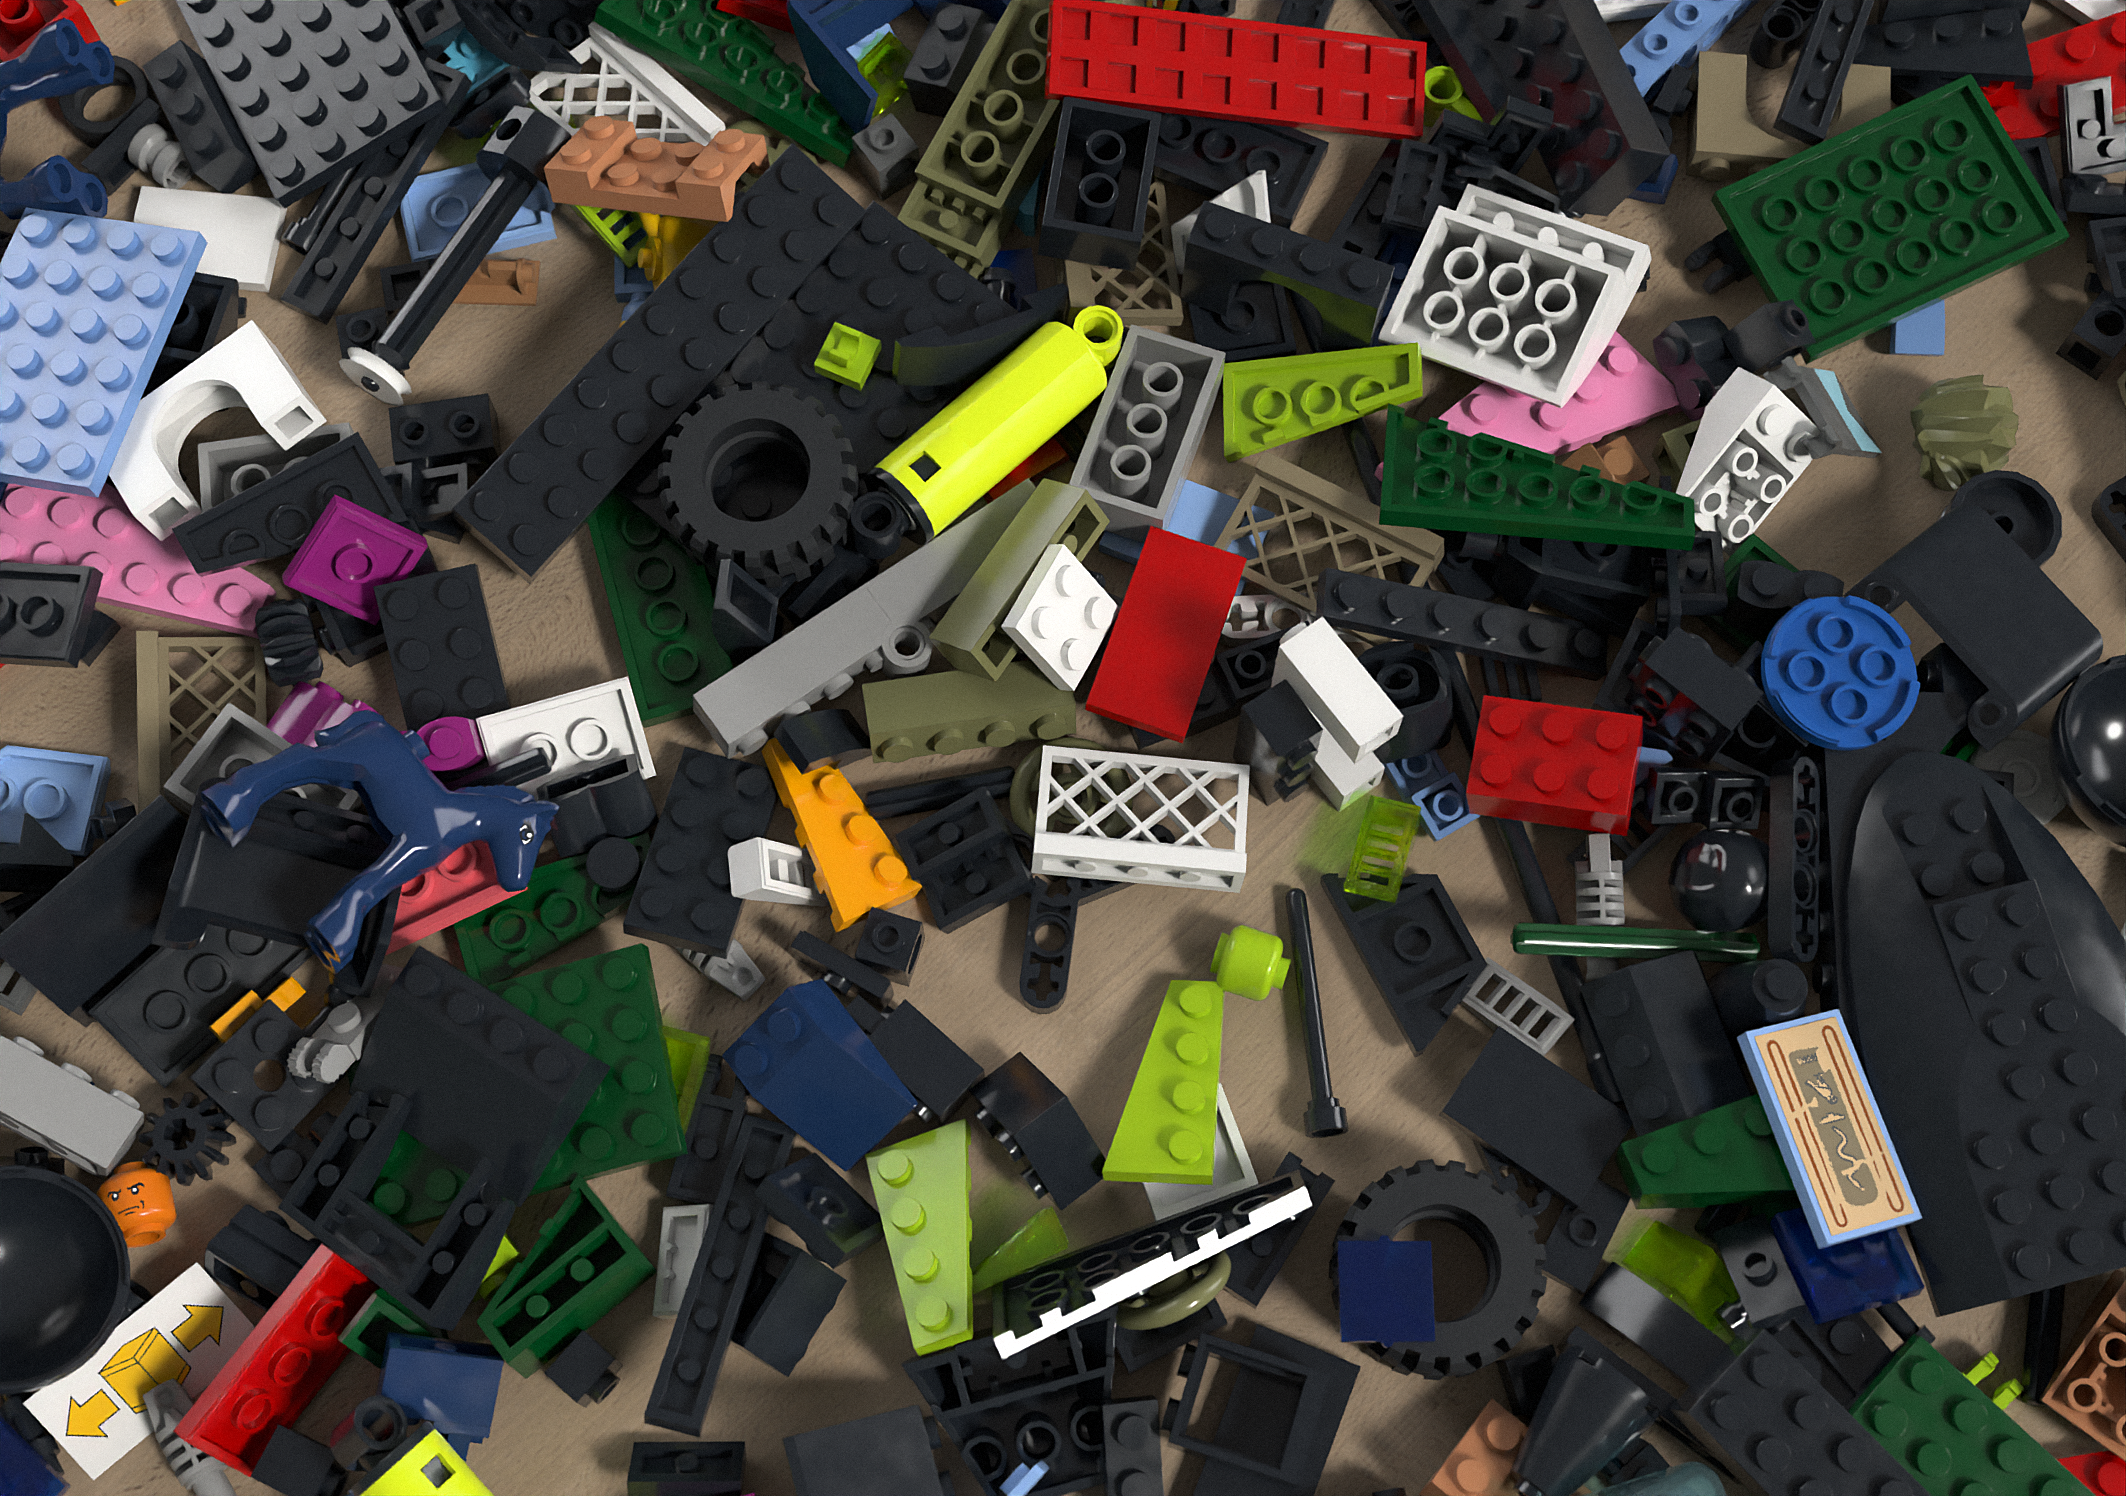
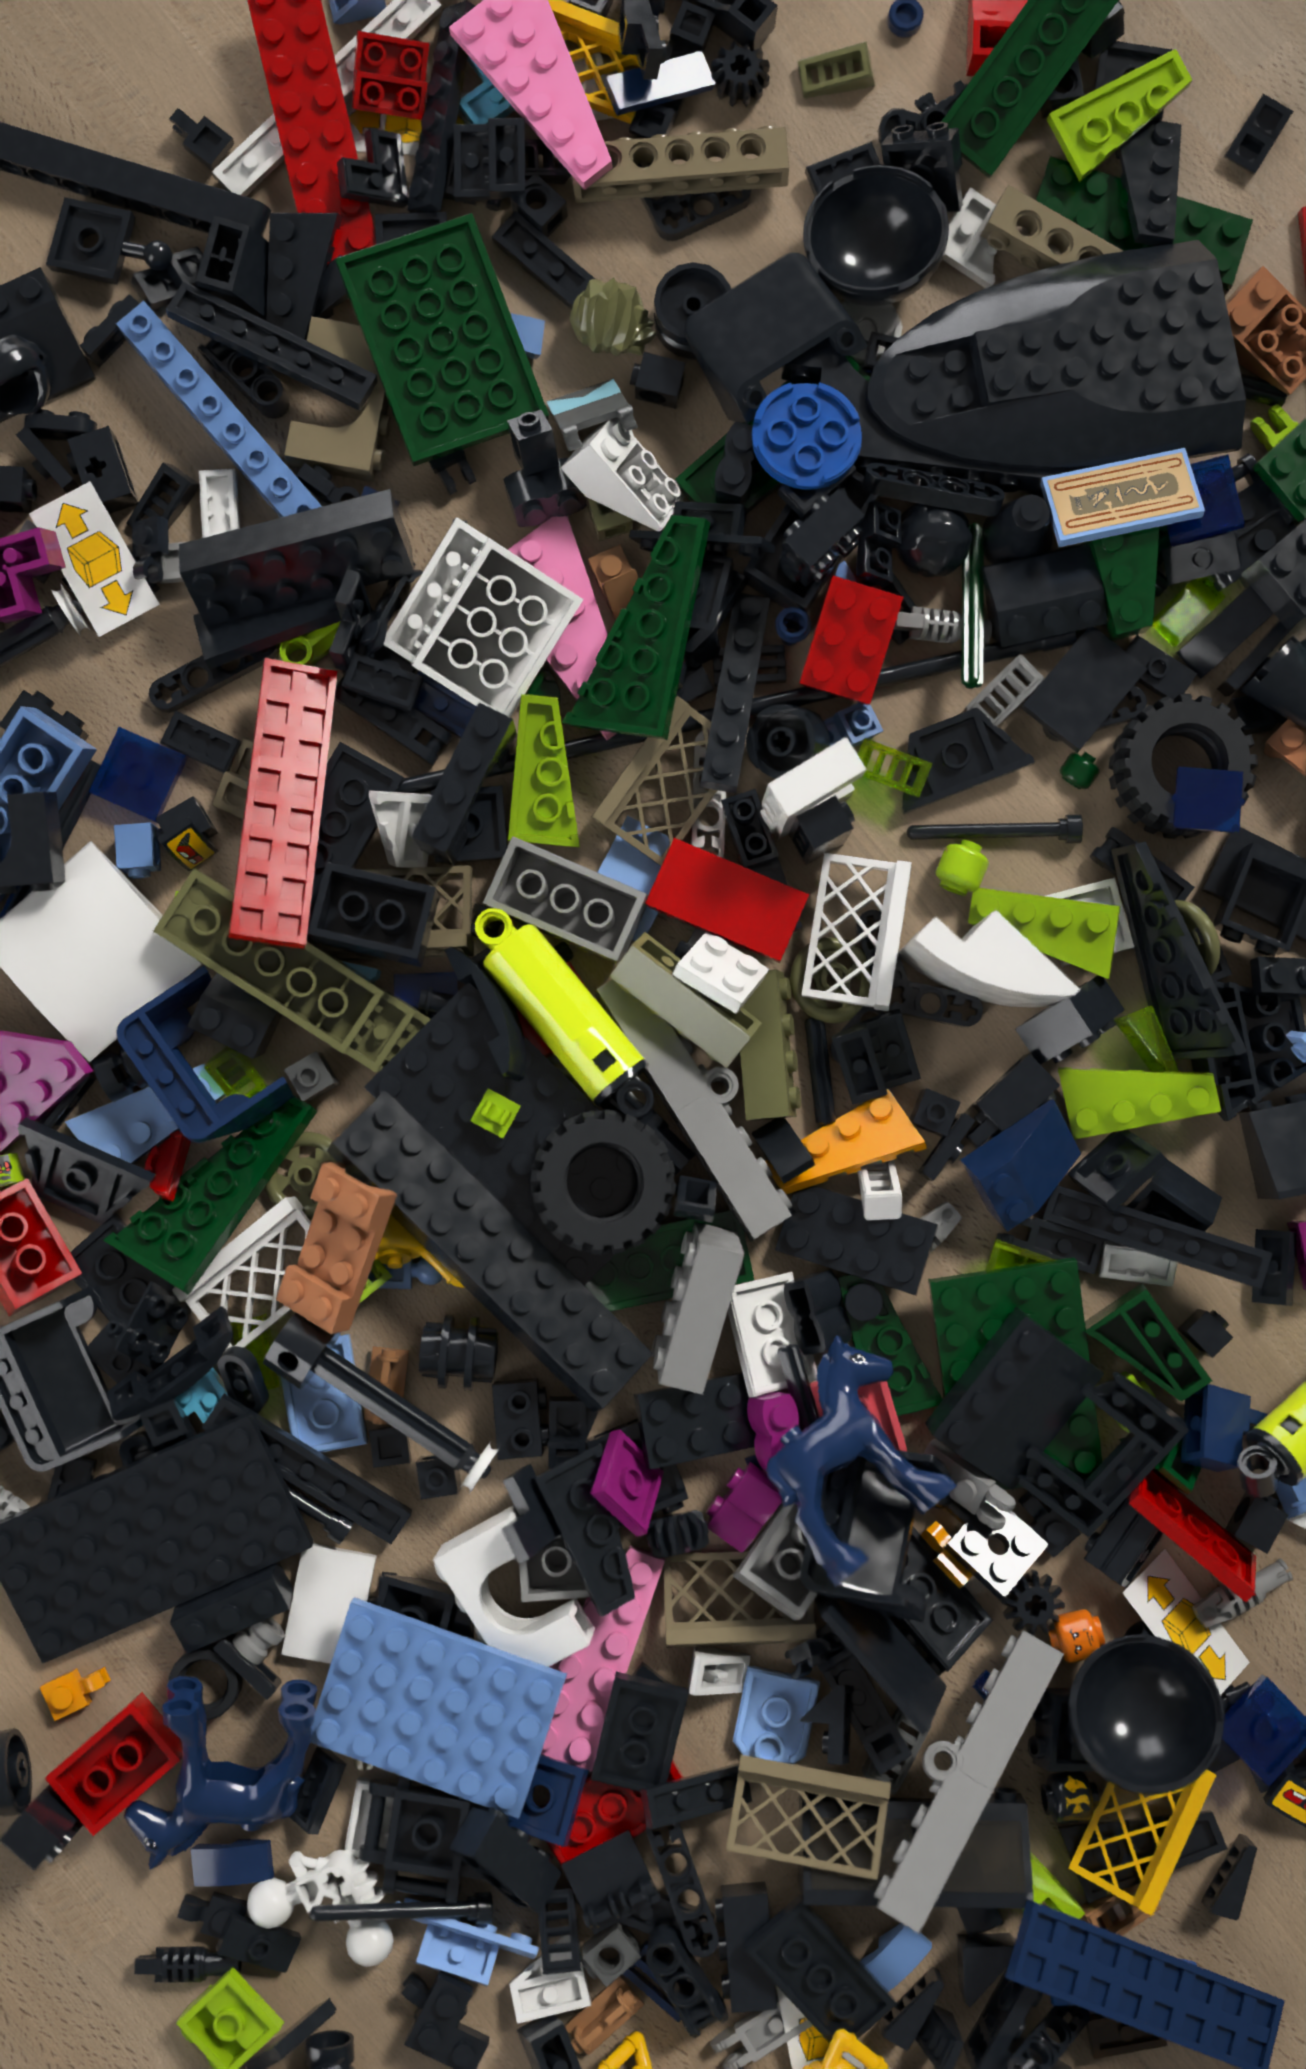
camera: 90 degrees left, 15 degrees up
(101, 710) = (717, 1671): none -> white slope
(294, 434) = (534, 1525): none -> black tile
(530, 349) = (458, 1352): none -> black piece
(596, 630) = (697, 1307): none -> light grey brick
(1110, 967) = (988, 963): none -> white slope
(1416, 1132) = (1080, 770): none -> dark green piece
(1436, 399) = (545, 685): none -> dark green tile
(1569, 688) = (795, 619): none -> dark blue cone
(1889, 504) = (658, 380): none -> black brick
(2033, 340) = (541, 258): none -> black plate

